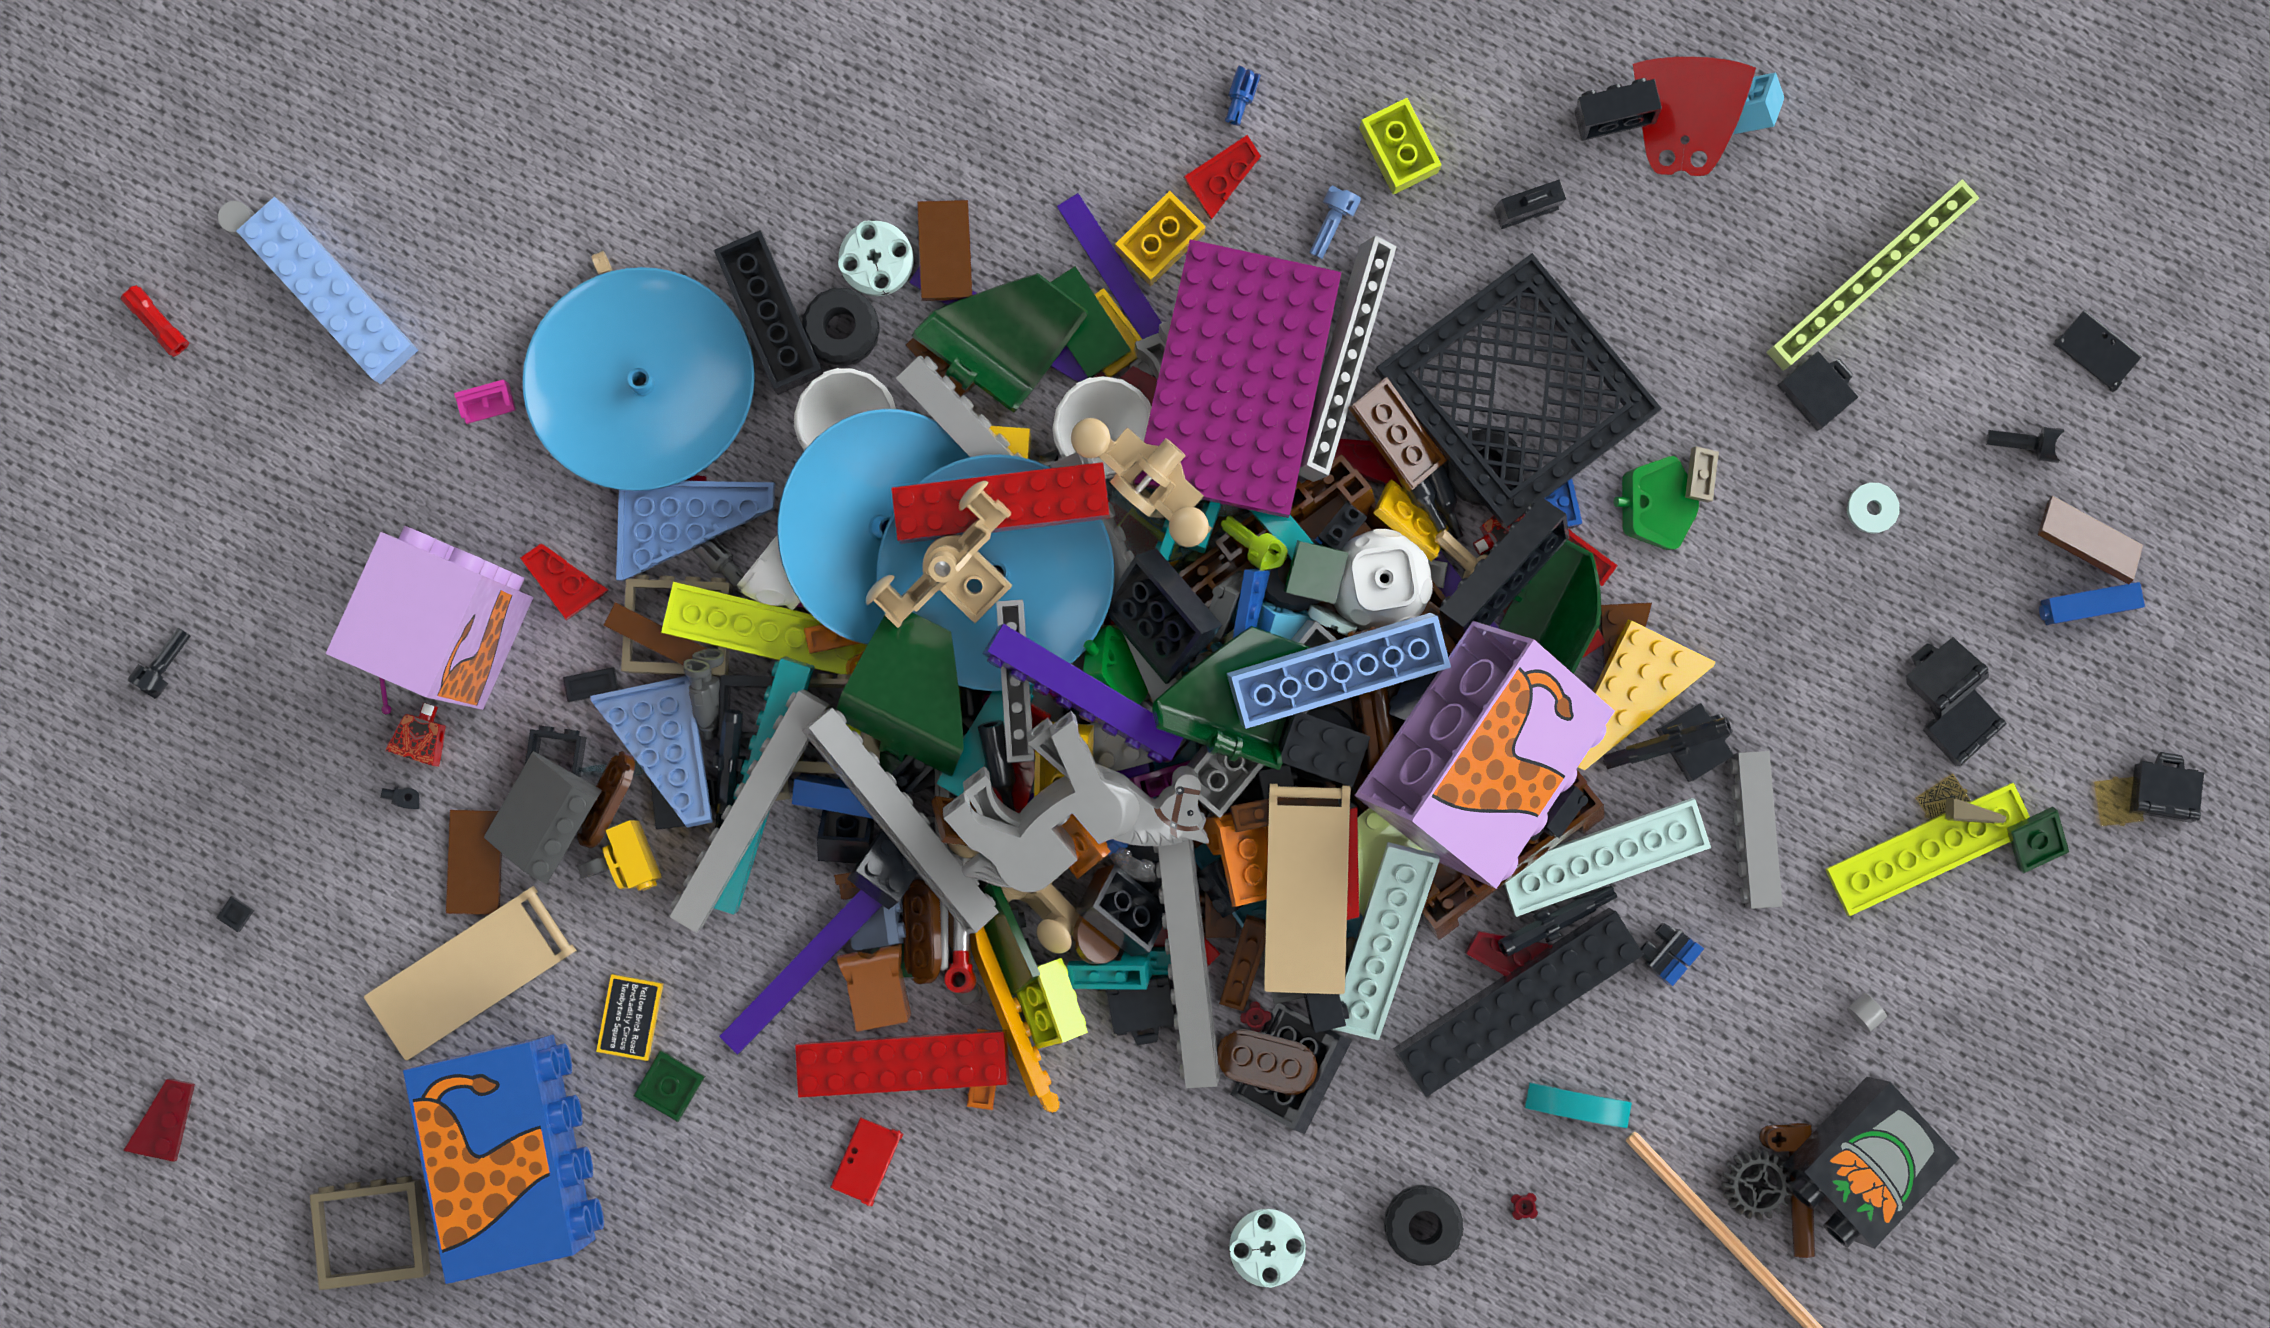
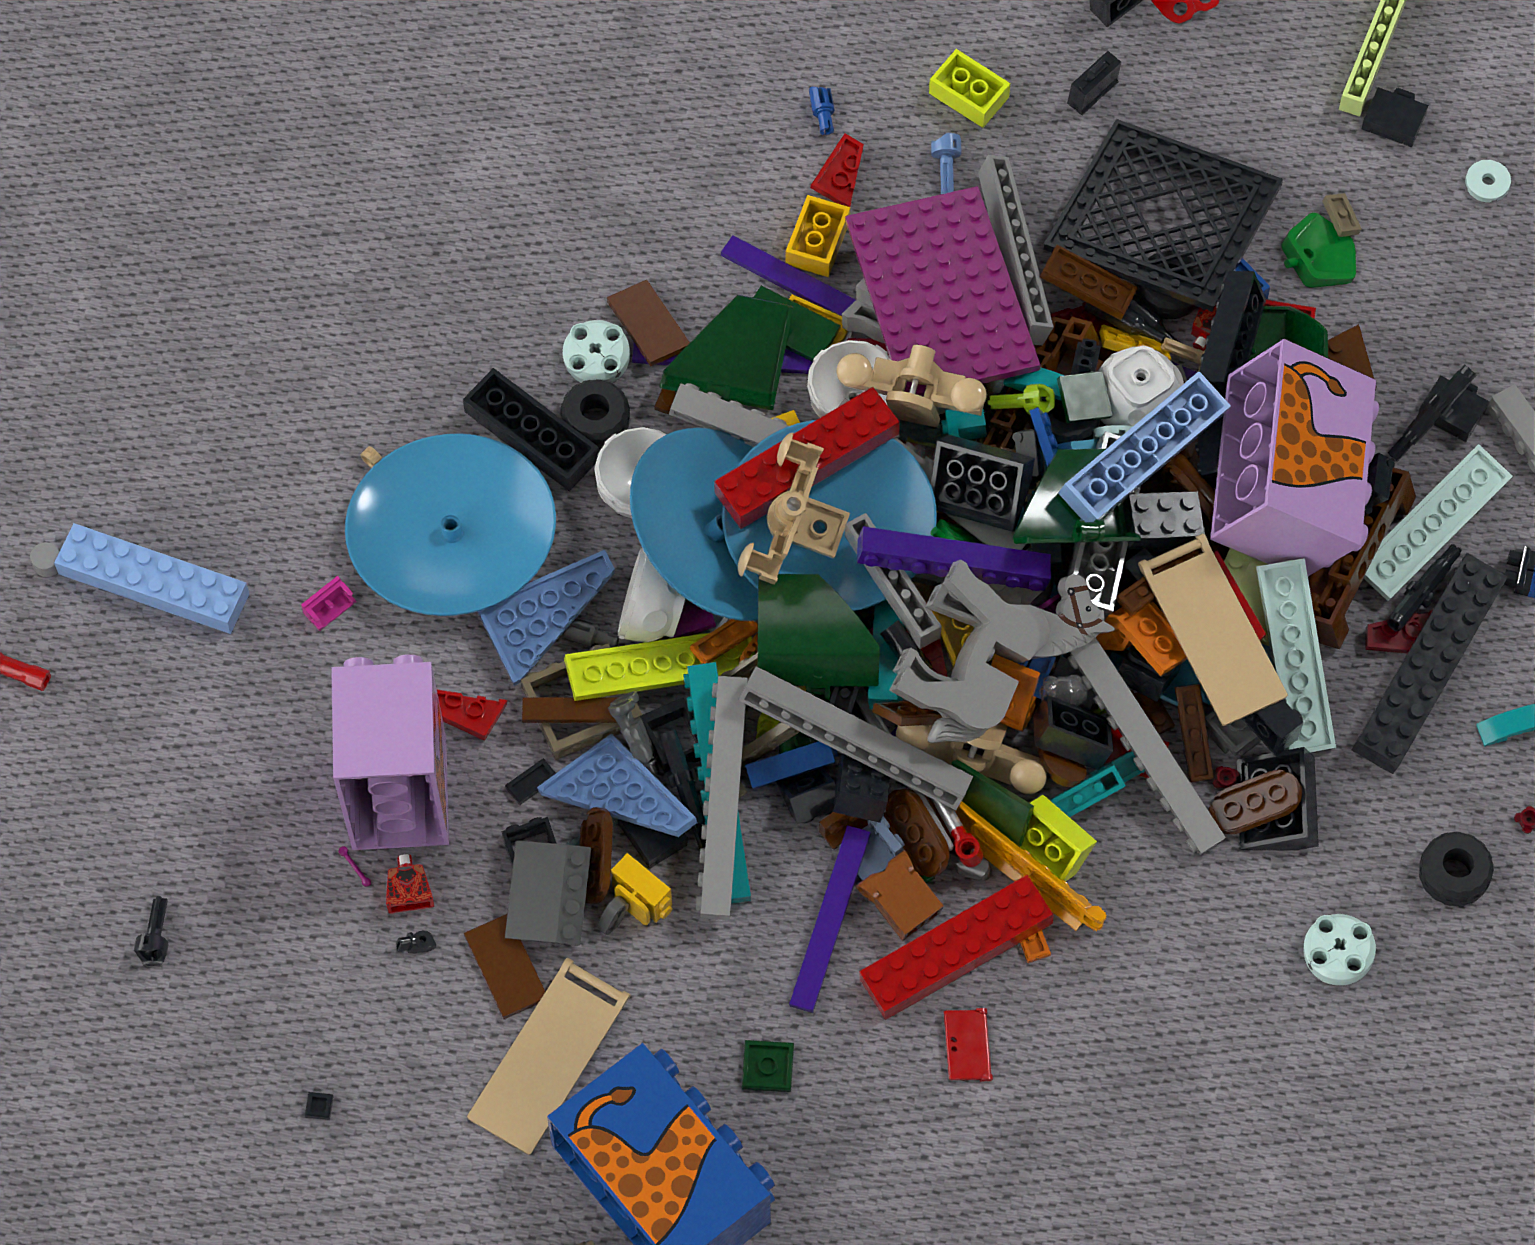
camera: 25 degrees left, 20 degrees down
(629, 1017) = (704, 1027): black tile -> none
(1142, 1009) = (1128, 813): black piece -> none
(1640, 680) = (1397, 372): yellow wing -> none

